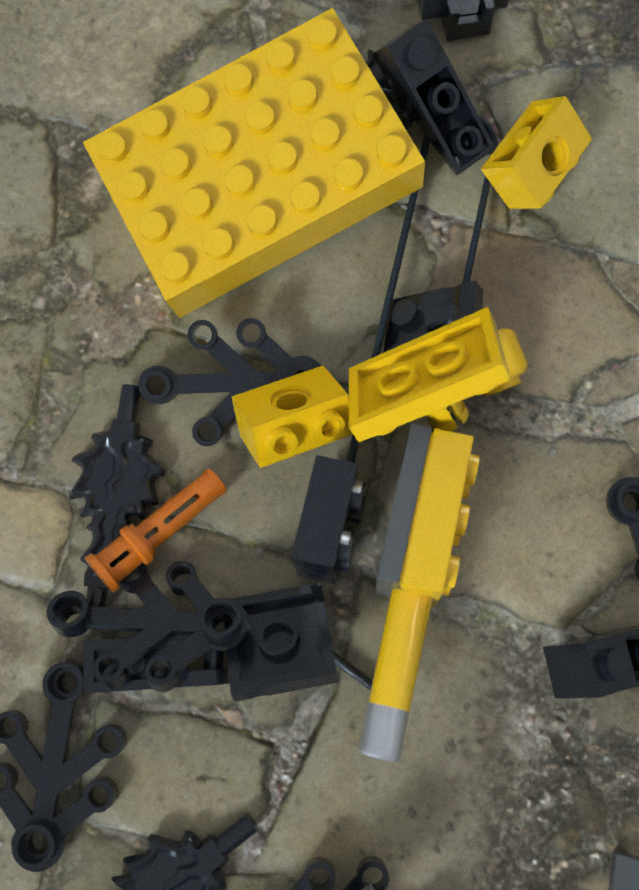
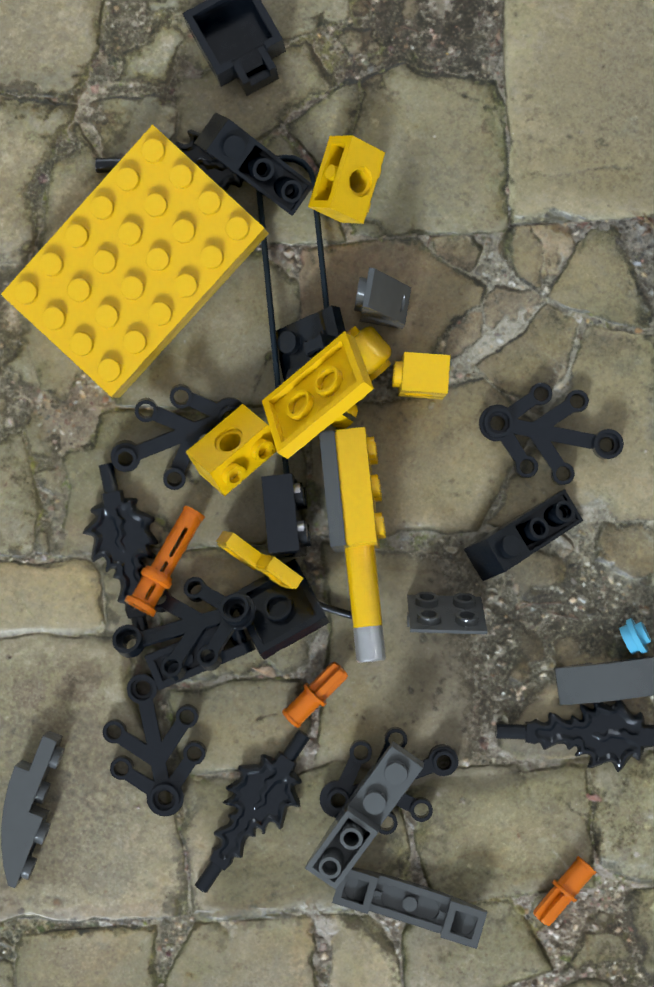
camera: 25 degrees left, 10 degrees up
(285, 773) = (315, 694): none -> orange axle
(286, 577) = (267, 564): none -> yellow tile
(496, 727) = (446, 614): none -> dark grey hinge
(539, 294) = (382, 300): none -> dark grey slope
(562, 405) = (422, 375): none -> yellow brick

